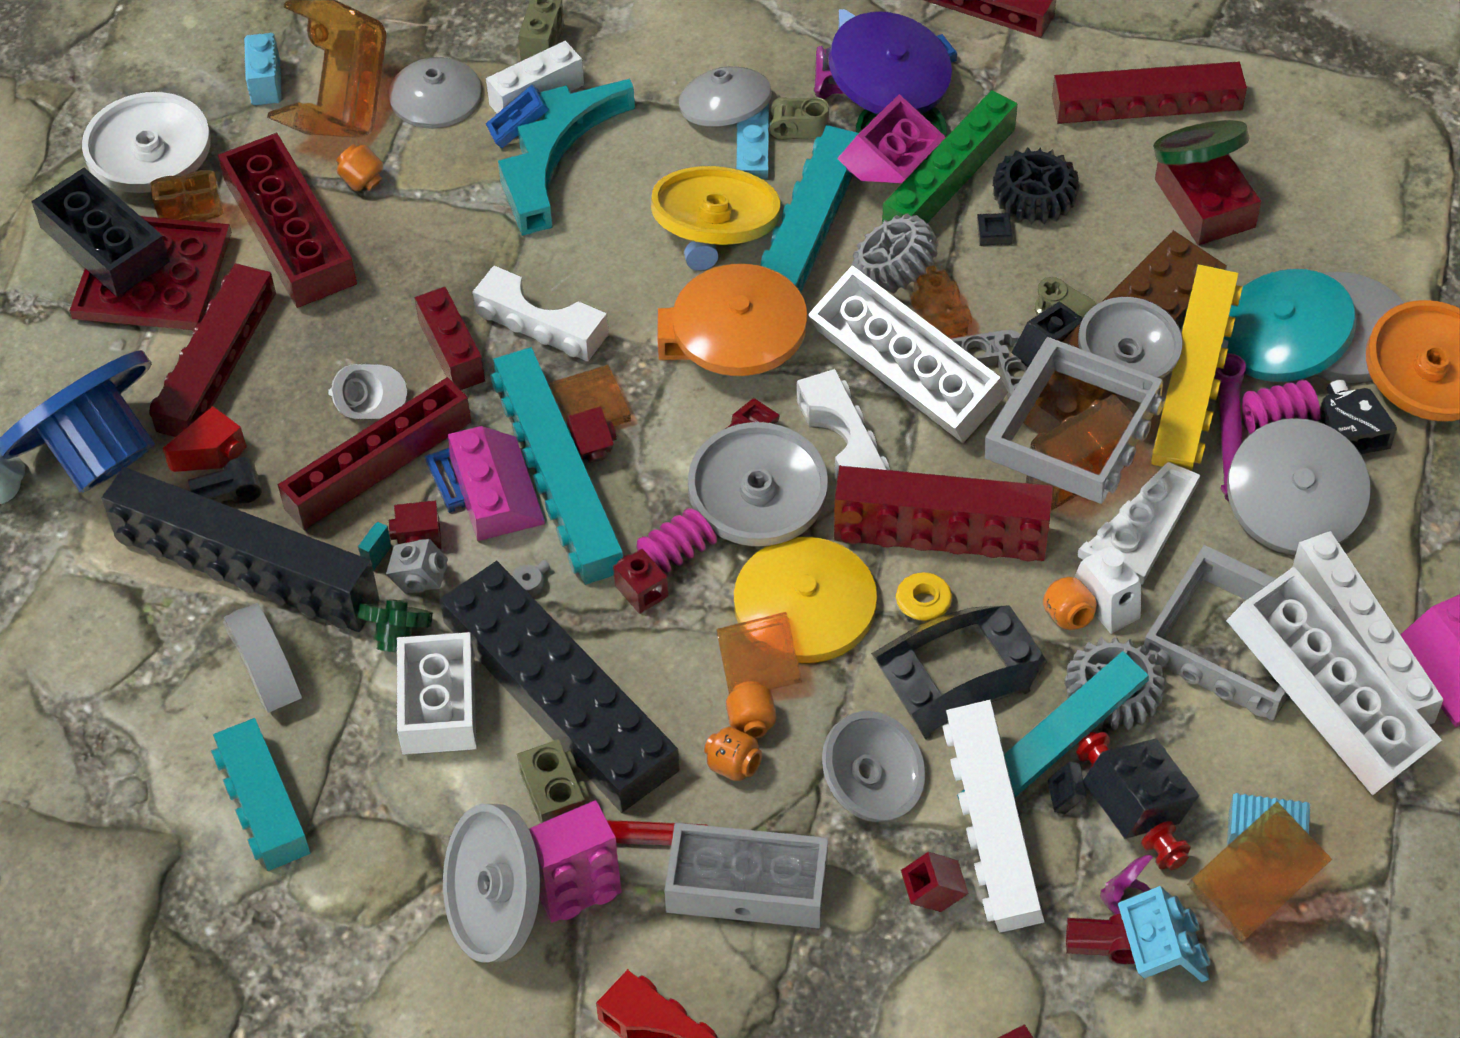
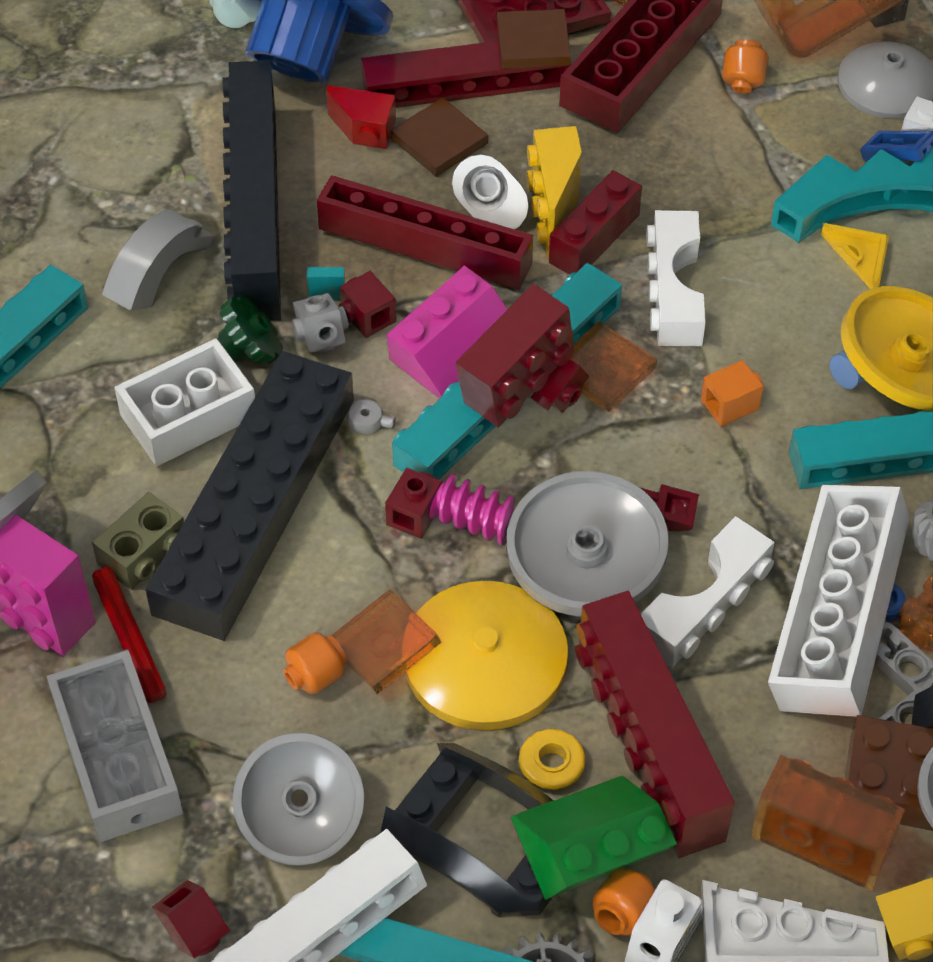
camera: 60 degrees right, 0 degrees up
(230, 283) = (533, 38): none -> reddish brown tile
(236, 482) = (331, 154): black piece -> none
(267, 402) = (439, 136): none -> reddish brown tile
(392, 337) = (553, 177): none -> yellow slope
(581, 433) = (516, 355): none -> dark red brick
(592, 192) = (859, 249): none -> yellow tile
(733, 754) = (253, 671): orange head -> none
(739, 319) = (774, 431): orange dish -> none
(1016, 591) = (591, 834): none -> green slope
(1091, 369) = (832, 719): light grey window -> none

